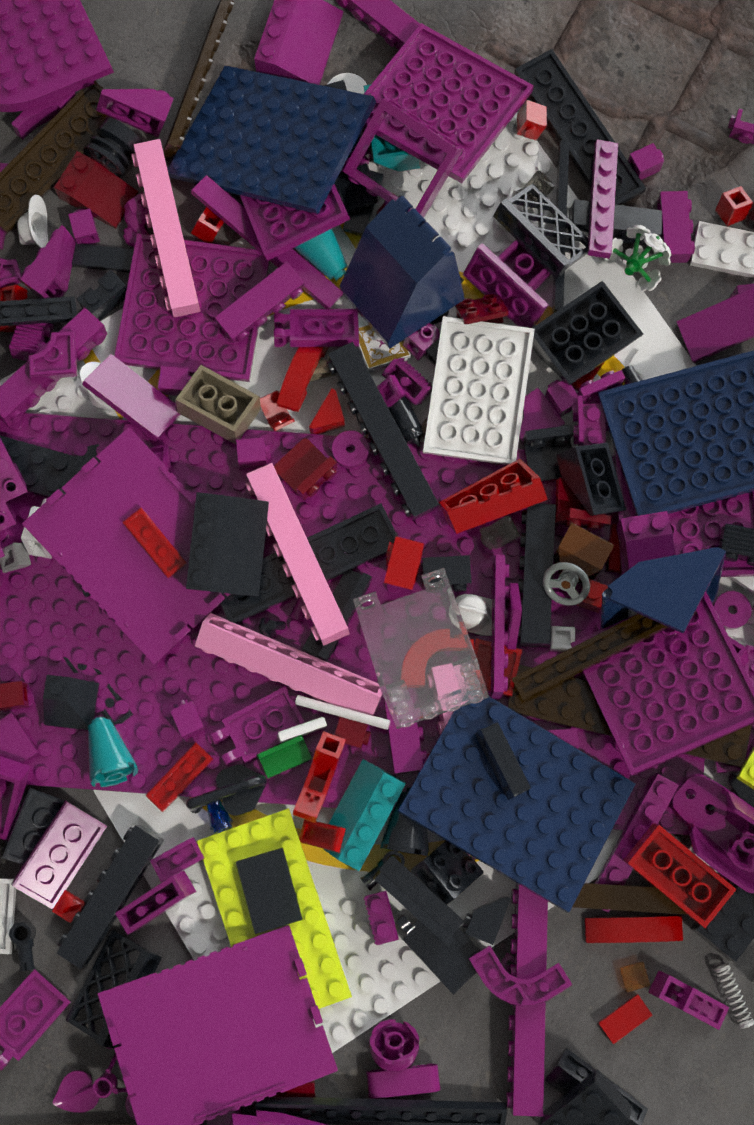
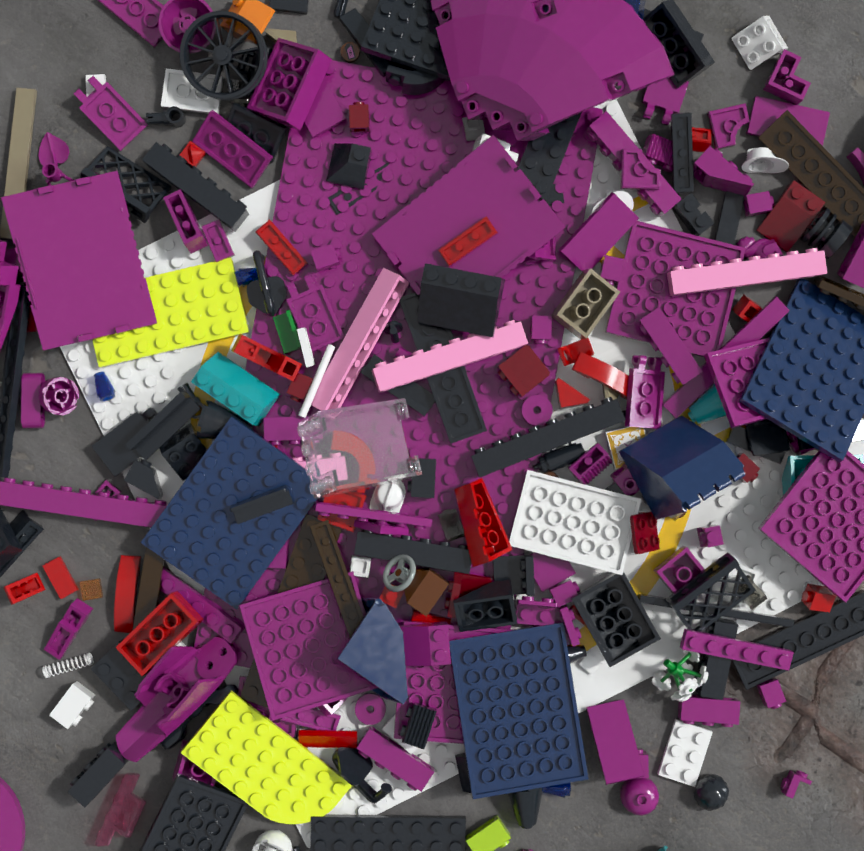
camera: 95 degrees right, 10 degrees up
(108, 754) = (304, 191): teal cone -> none
(269, 890) = (184, 310): black tile -> none
(322, 835) = (222, 356): red tile -> none
(376, 987) = (104, 388): none -> clear blue cone
(381, 918) = (154, 395): magenta brick -> none
(391, 107) = (804, 500): magenta window -> none
(391, 390) = (581, 448): magenta tile -> none
(403, 562) = (425, 440): red wedge -> none
(473, 237) = (710, 536): none -> magenta brick
(495, 277) = (656, 562): magenta tile -> none
(519, 991) = (86, 495): magenta plate -> none
(645, 1063) = (24, 588): none -> red slope
(734, 206) = (721, 763): red brick -> none

